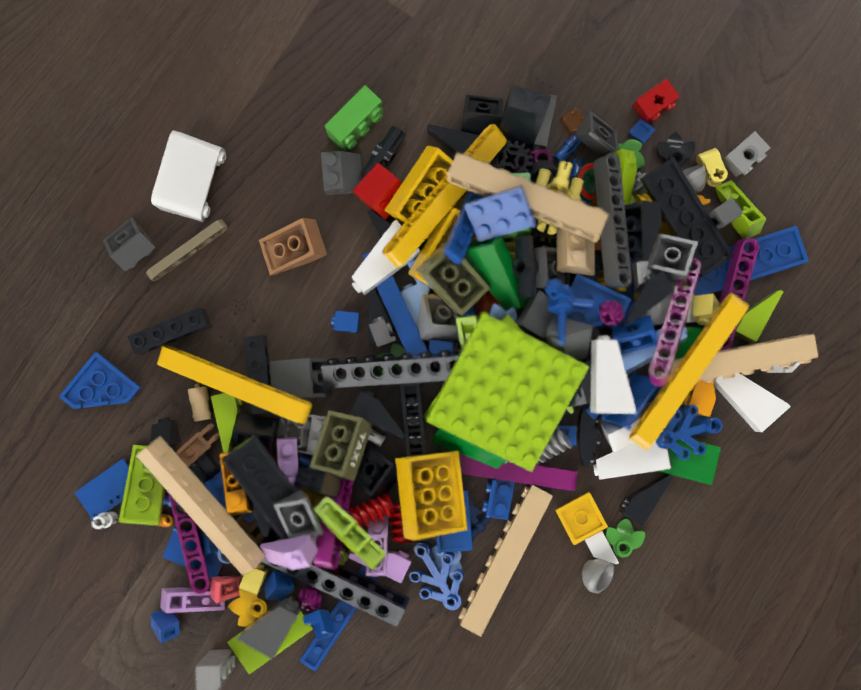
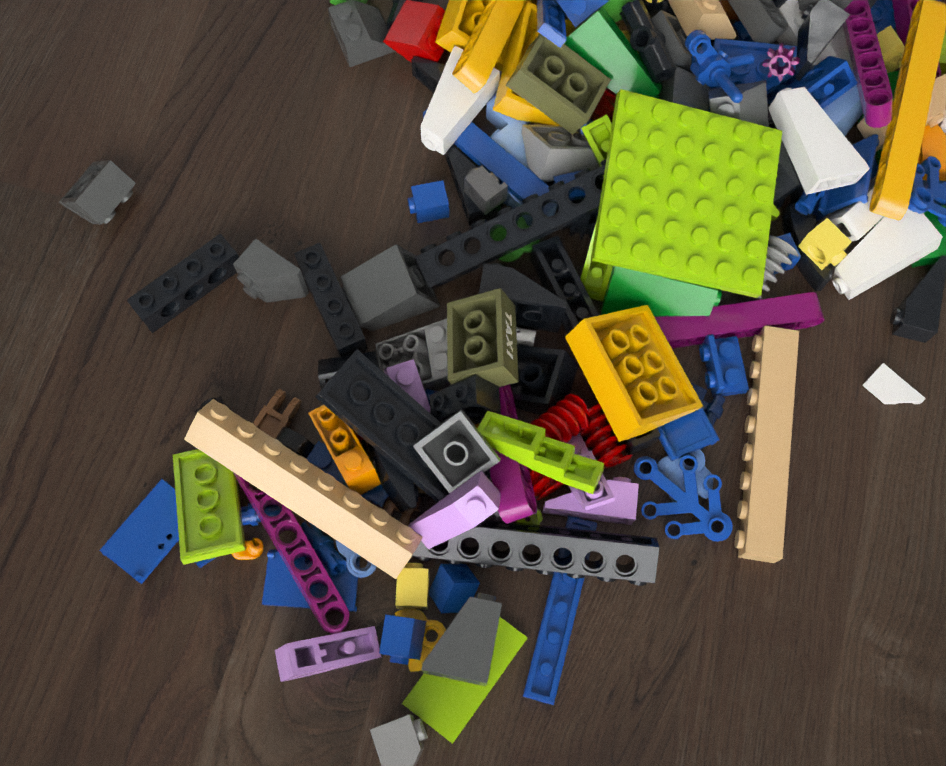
camera: 20 degrees left, 15 degrees down
(99, 385) = (100, 387): blue plate -> none
(104, 520) = (157, 569): white pin -> none
(164, 625) = (295, 708): blue panel -> none
(186, 176) = (156, 88): white windscreen -> none
(187, 250) = (180, 178): dark tan beam -> none
(200, 403) = (256, 366): tan piece -> none
(222, 344) = (269, 275): none -> dark grey slope
(224, 587) = (369, 613): coral slope -> none
(226, 412) = (300, 364): lime slope -> none
(235, 384) = (302, 312): yellow beam -> none
(237, 608) = (402, 638): none -> blue brick
(293, 246) = (325, 132): medium nougat slope -> none
(309, 598) = (508, 590): magenta gear -> none
(321, 623) = (536, 623): blue panel -> none
(581, 518) = (847, 355): yellow plate -> none
(593, 446) = (825, 244): none -> light yellow brick
(597, 575) = (905, 420): light grey hat -> none
(624, 535) = (914, 362): bright green plate -> none

